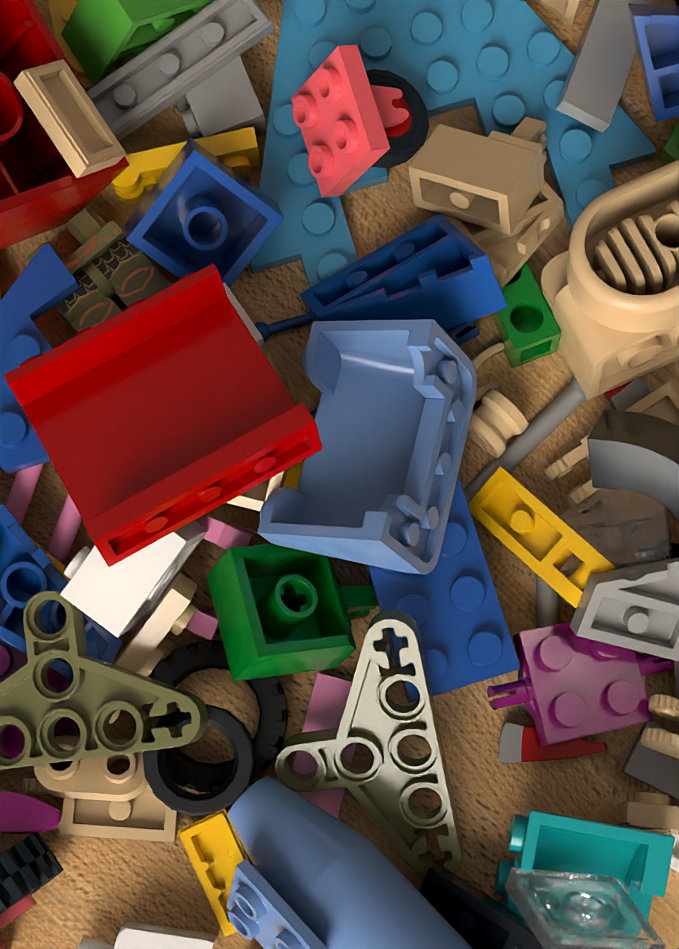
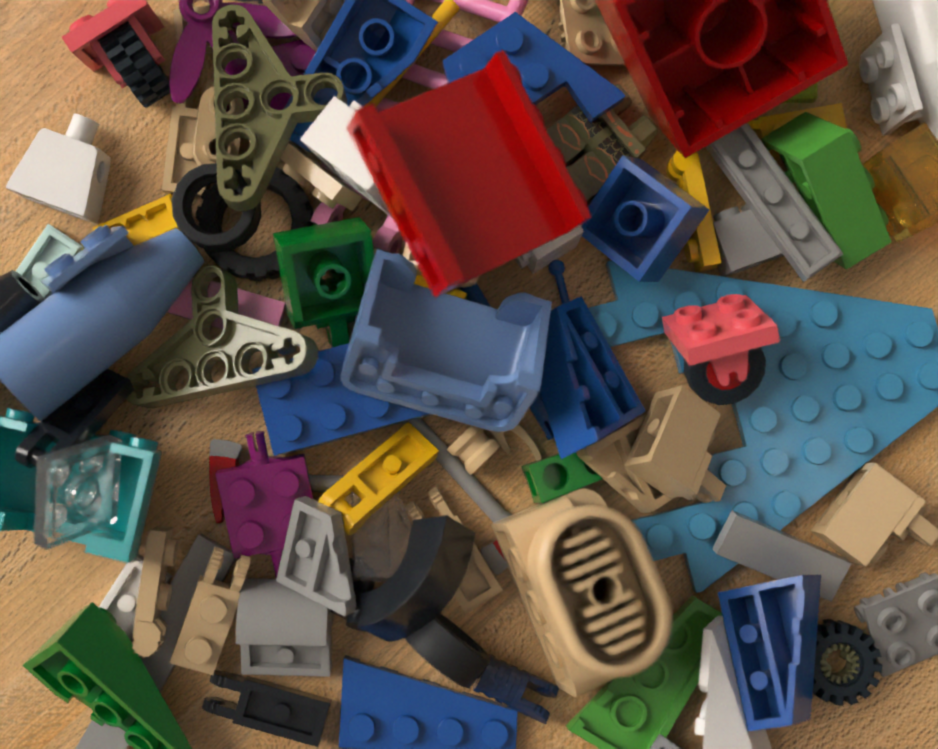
camera: 90 degrees right, 5 degrees up
(69, 117) = (719, 106): tan tile -> none

